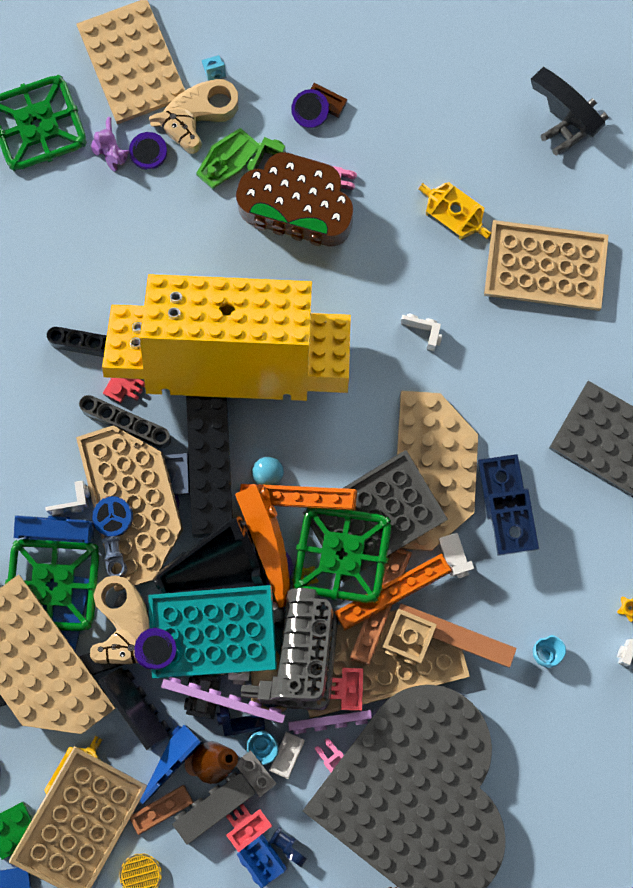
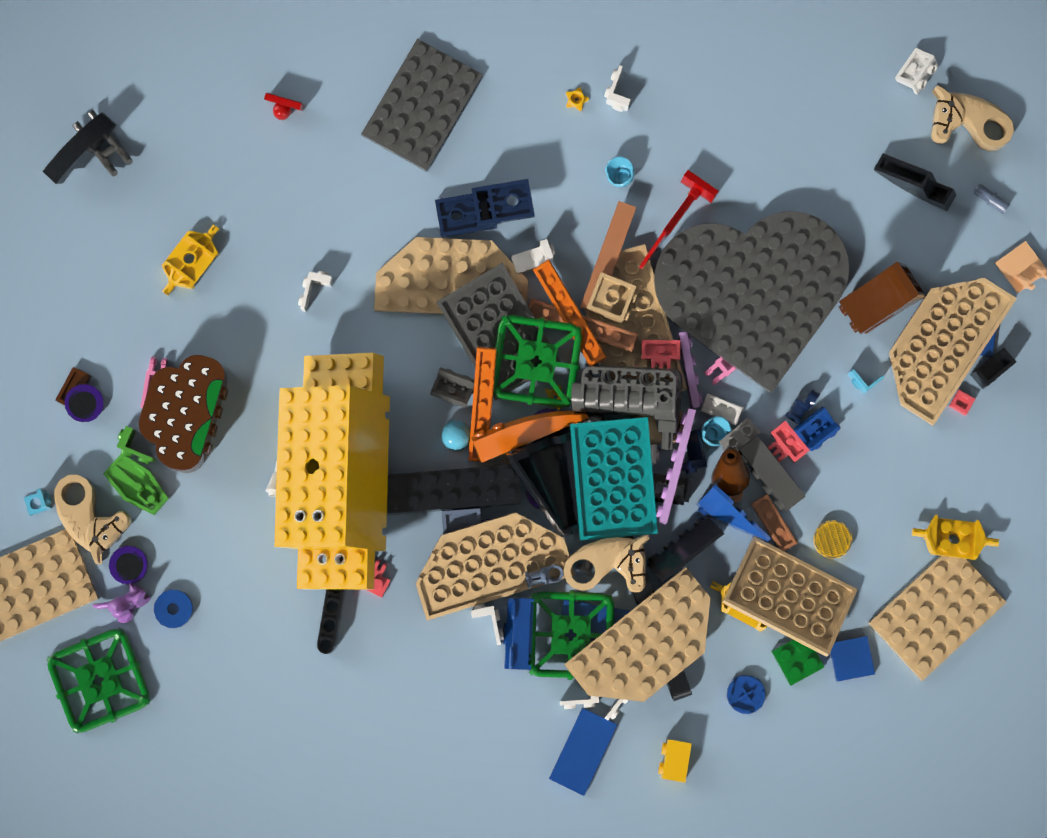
camera: 90 degrees left, 5 degrees up
(98, 182) = (165, 600): none -> blue tile
(112, 516) = (505, 579): blue tile -> none
(119, 414) = (410, 583): dark grey beam -> none
(155, 649) = (632, 529): tile -> none
(317, 468) = (453, 387): none -> dark grey bracket
(531, 736) = (697, 188): none -> red piece
(546, 265) = (246, 172): tan plate -> none
(616, 302) = (283, 106): none -> red tile

